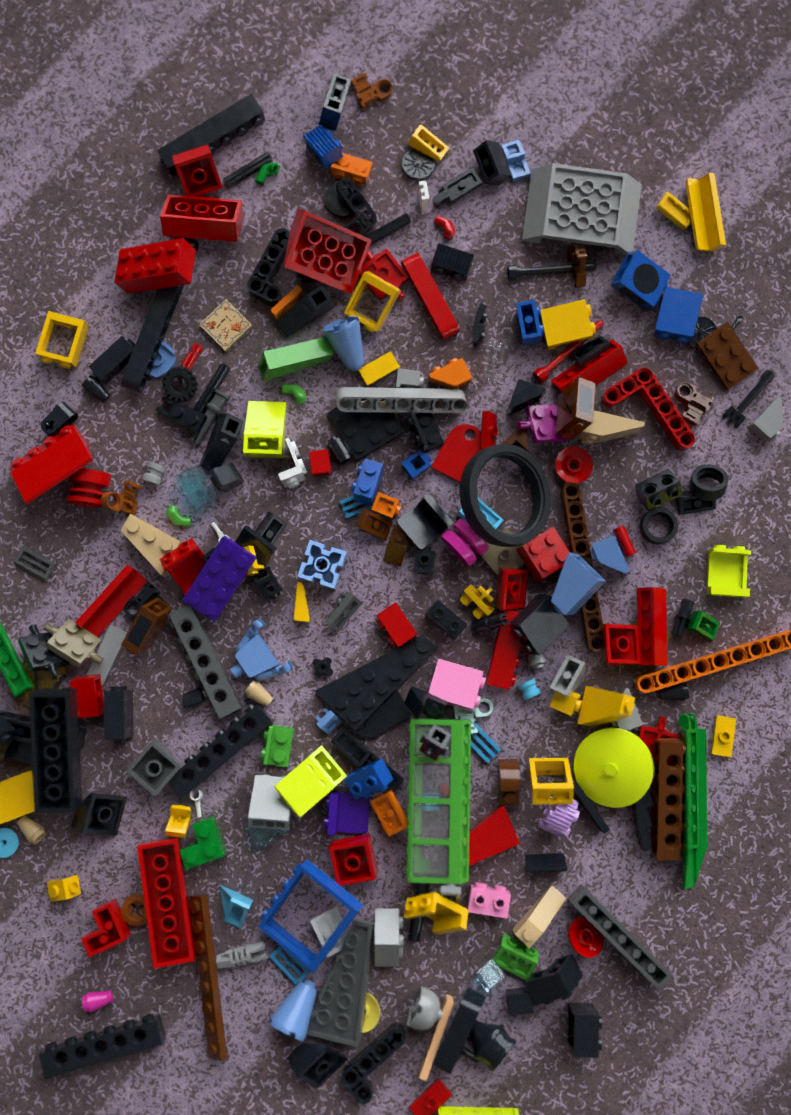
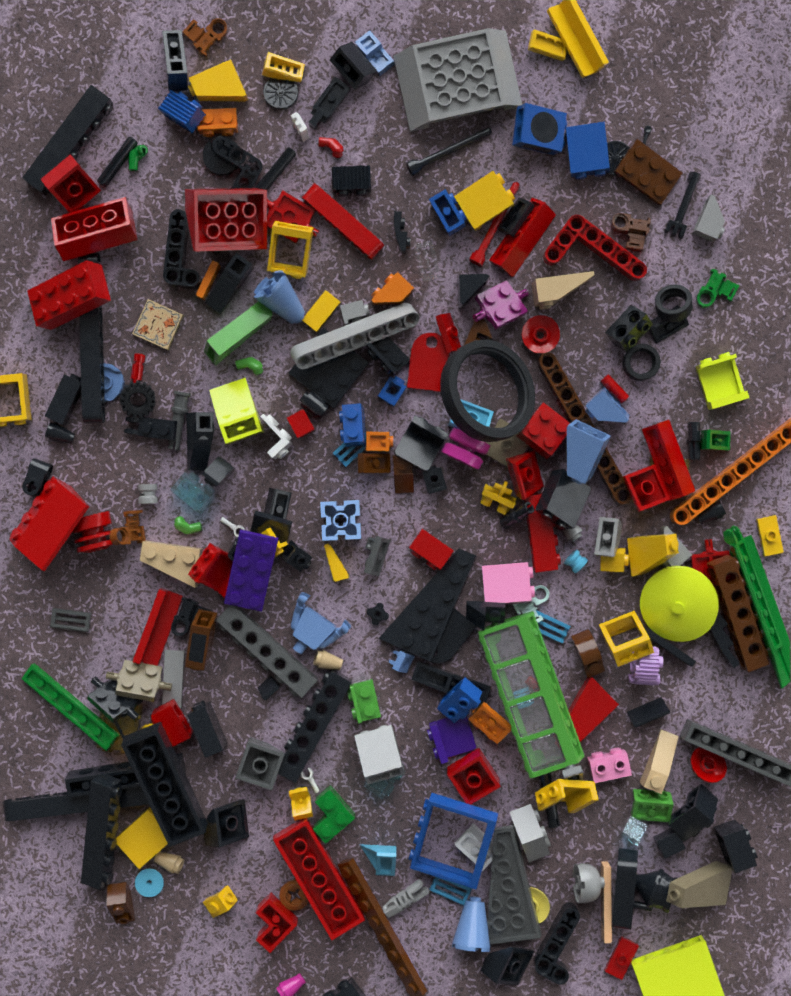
camera: 20 degrees left, 5 degrees up
(214, 384) = (170, 386): black axle -> none
(310, 781) = (407, 722): neon yellow slope -> none
(364, 135) = (218, 84): none -> yellow slope
(434, 742) = (508, 646): black brick -> none
(446, 619) = (475, 526): black brick -> none
(535, 1058) = (701, 887): none -> dark tan slope
(575, 408) = (523, 282): reddish brown brick -> none
(579, 257) = (473, 129): reddish brown piece -> none
(755, 483) = (718, 287): none -> green piece

